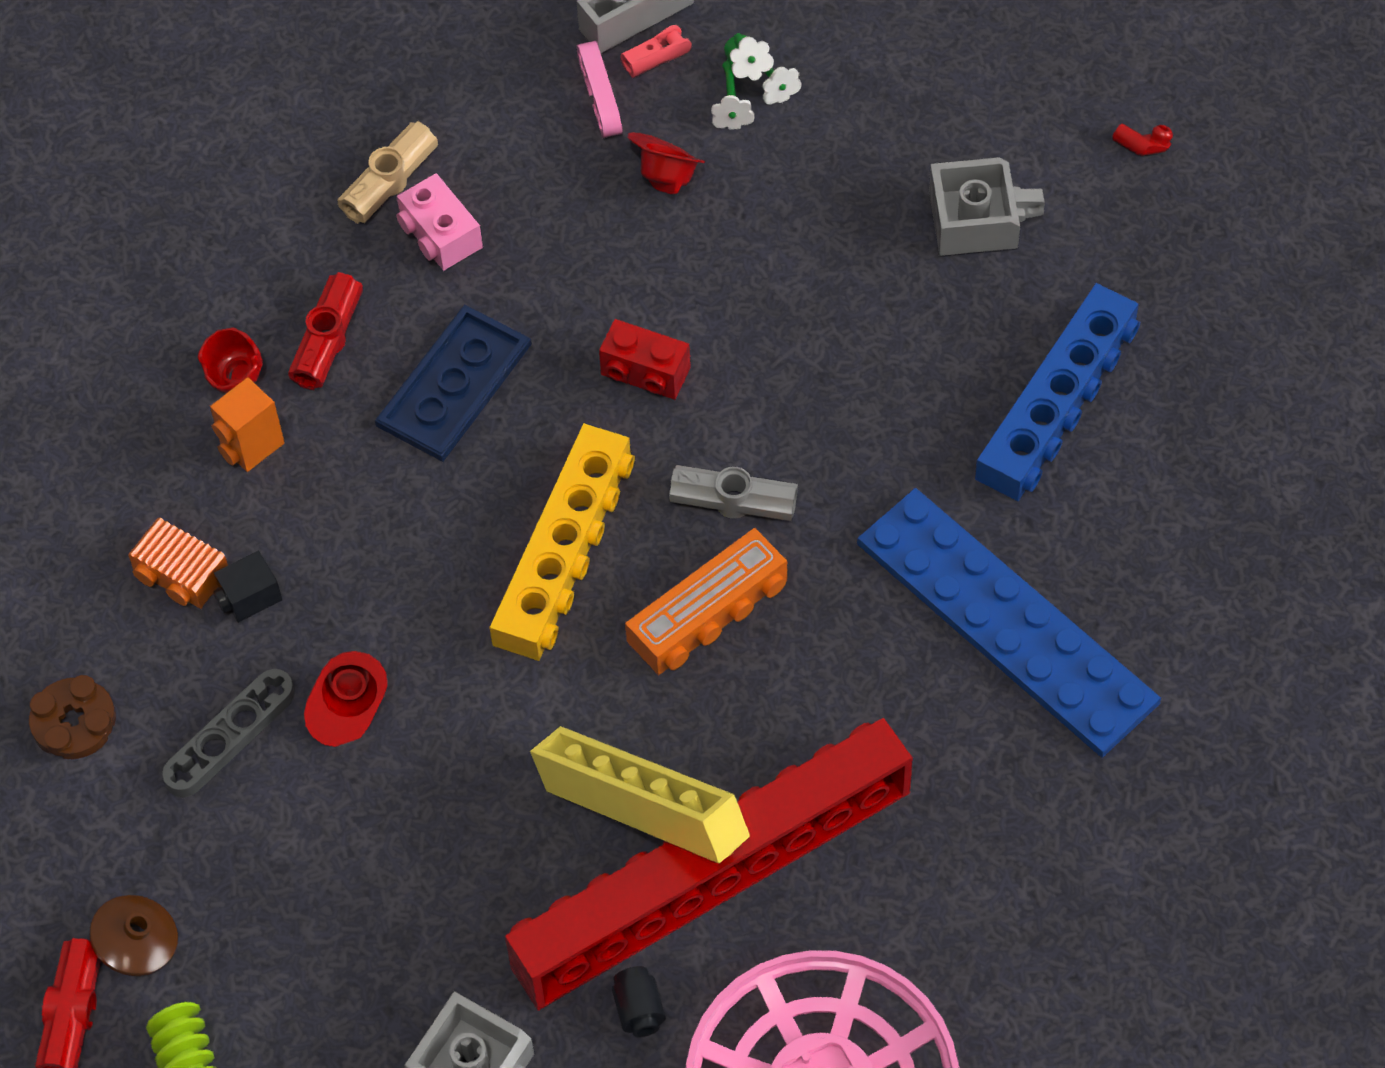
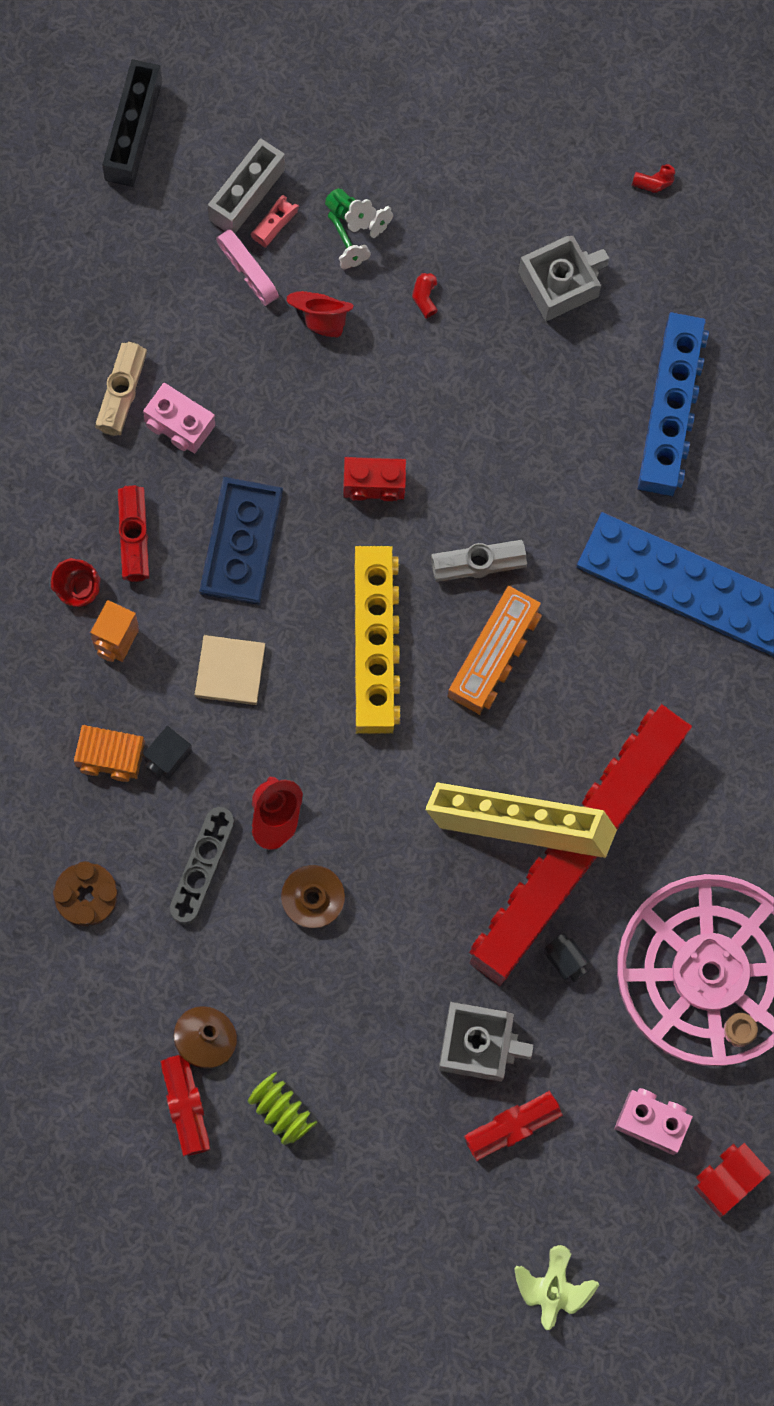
camera: 30 degrees left, 15 degrees up
(341, 796) = (313, 880): none -> reddish brown dish
(370, 521) = (230, 670): none -> tan tile
(804, 170) = (421, 293): none -> red arm

